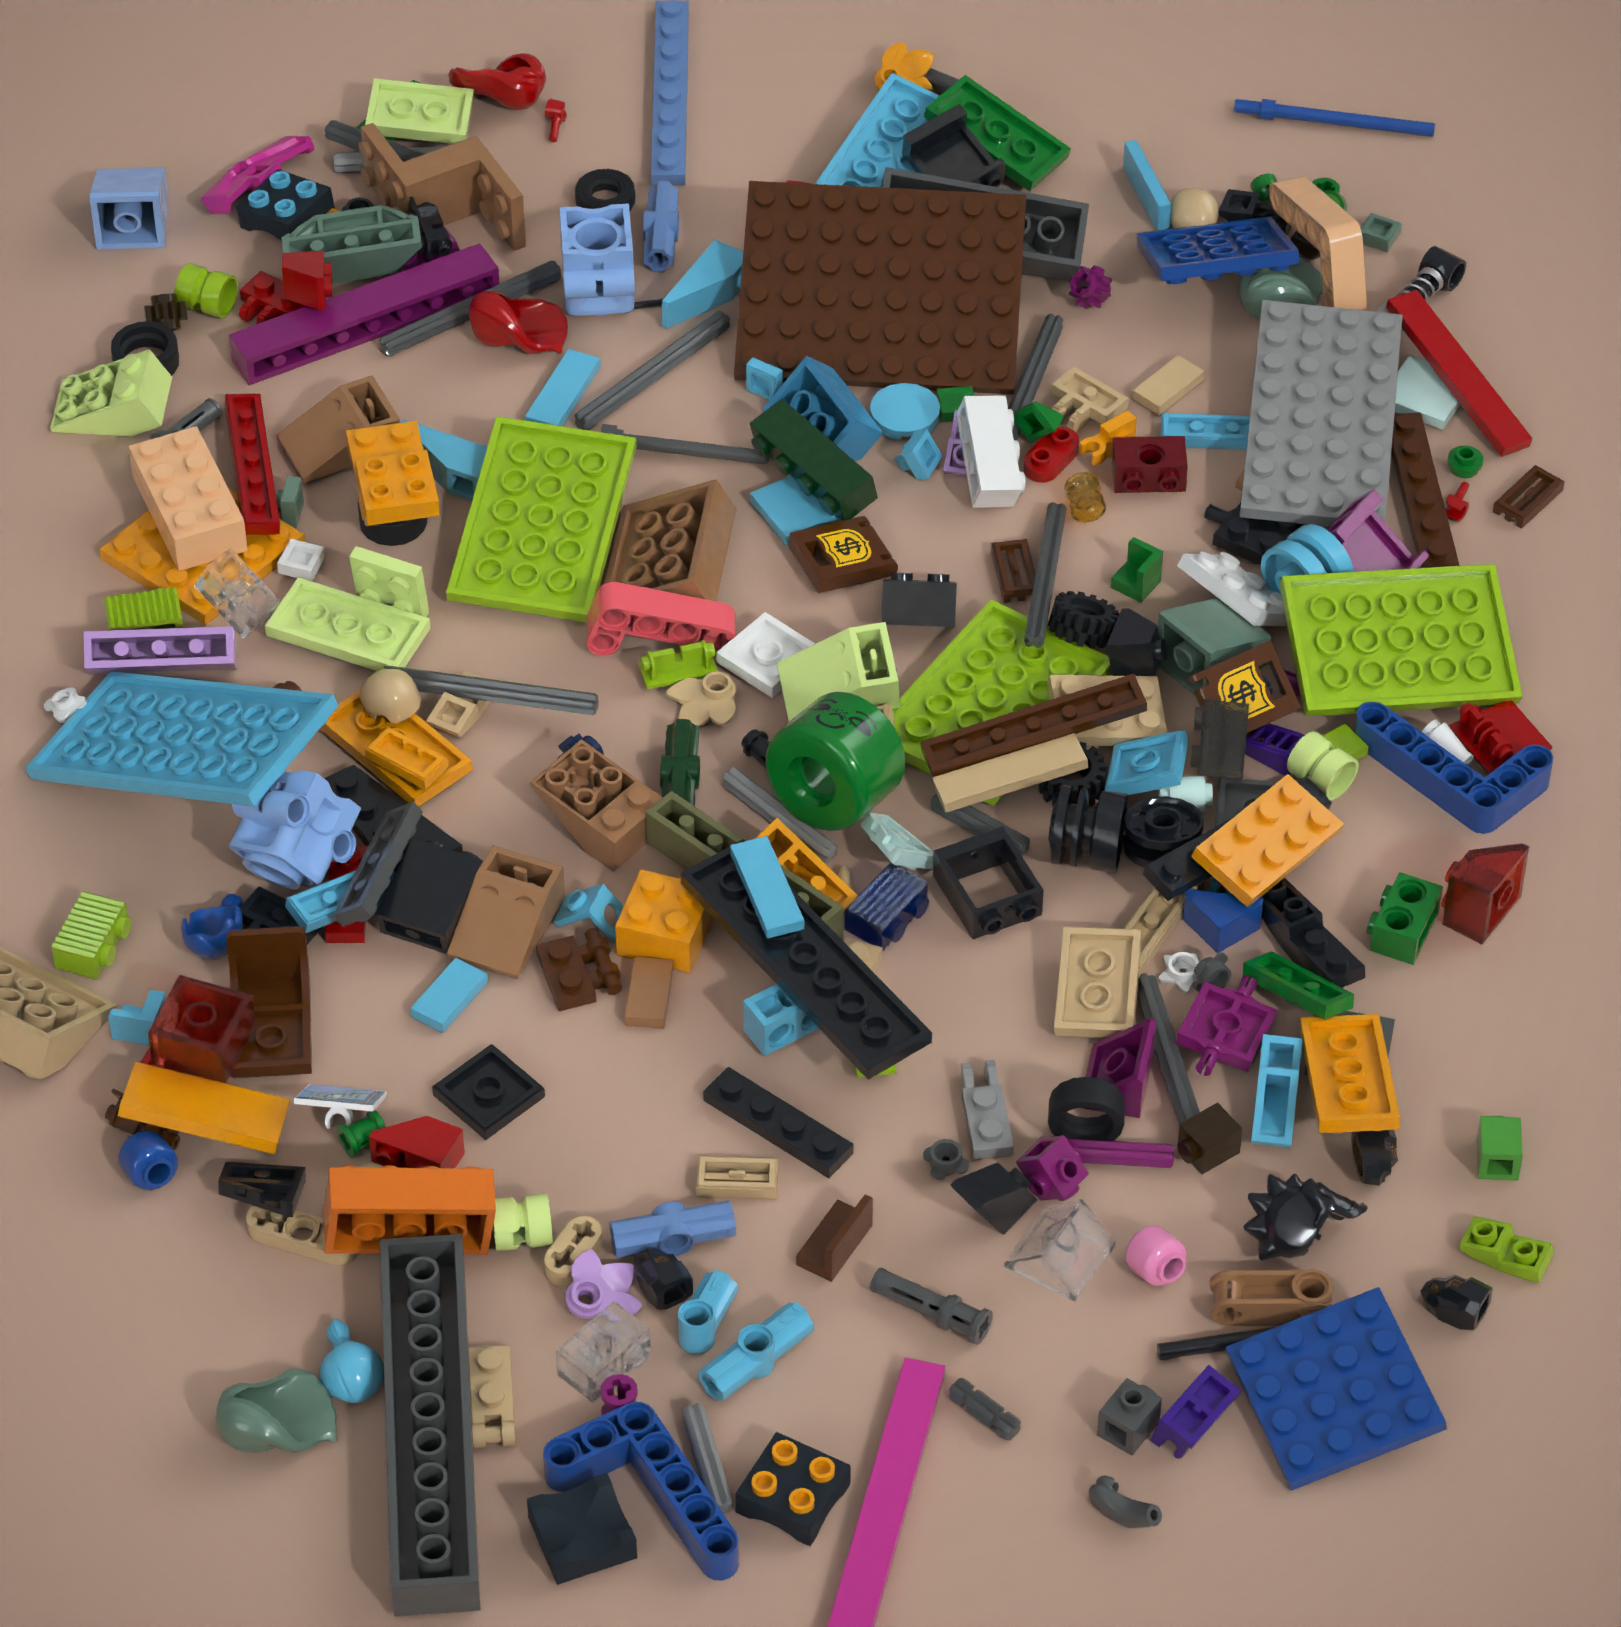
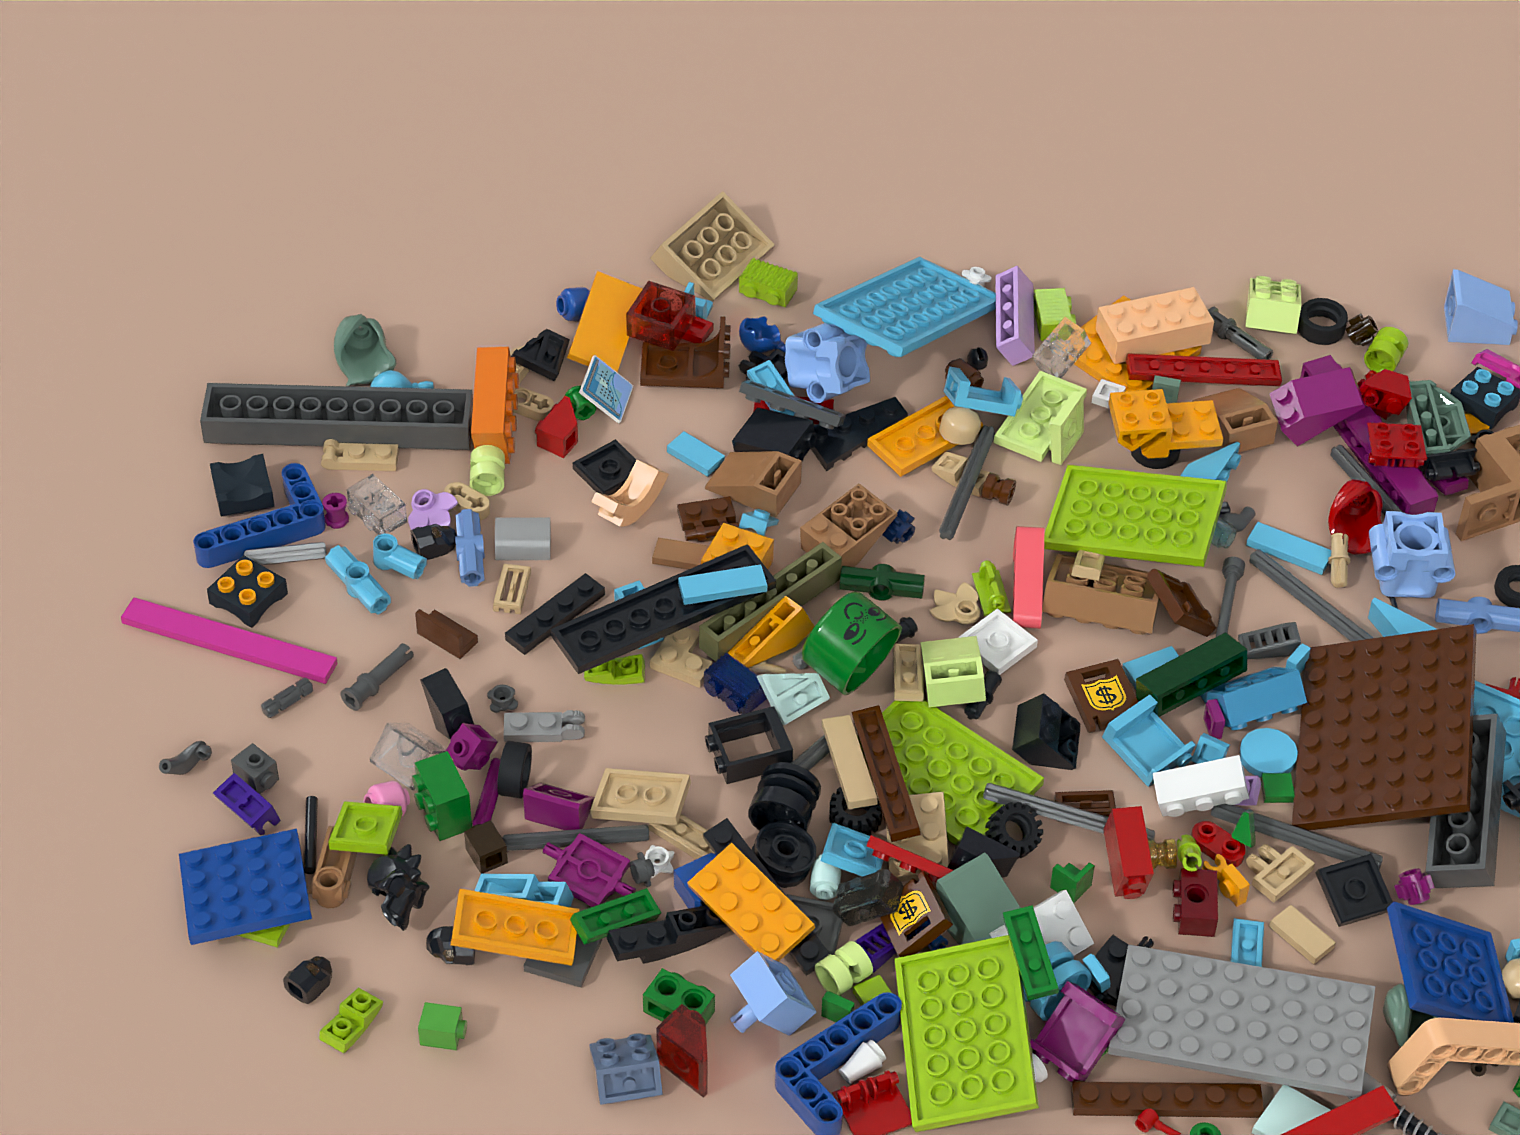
camera: 95 degrees right, 0 degrees up
(328, 339) = (1316, 403): none -> magenta slope
(337, 661) = (963, 395): none -> medium azure panel
(406, 758) = (898, 429): light orange plate -> none
(409, 264) = (1396, 442): none -> red hinge
(496, 658) = (998, 488): none -> reddish brown wheel
(554, 1050) = (634, 496): none -> light nougat arch
(588, 340) = (1339, 559): none -> tan axle
(636, 561) = (1088, 565): none -> tan tile
(647, 1167) = (522, 538): none -> light grey brick
(706, 467) = (1181, 603): none -> reddish brown container
(727, 386) = (1285, 633): none -> dark grey slope
(869, 450) = (1214, 719): none -> magenta tile
(919, 507) = (1146, 741): none -> medium azure panel
(1089, 462) = (1189, 852): none -> lime pin
(1101, 337) = (1354, 889): none -> black tile
(1110, 505) = (1128, 852): none -> red brick
(1150, 1179) = (442, 796): none -> green brick
(1163, 697) = (909, 860): none -> red plate
(1225, 1253) = (365, 828): none -> lime plate
(1288, 526) = (1098, 973): none -> medium azure tile
(1311, 556) = (1030, 953): none -> green plate
(1377, 770) = (836, 1007): none -> green tile
(1392, 818) = (771, 996): none -> light blue brick
(1503, 960) = (626, 1068): none -> sand blue bracket

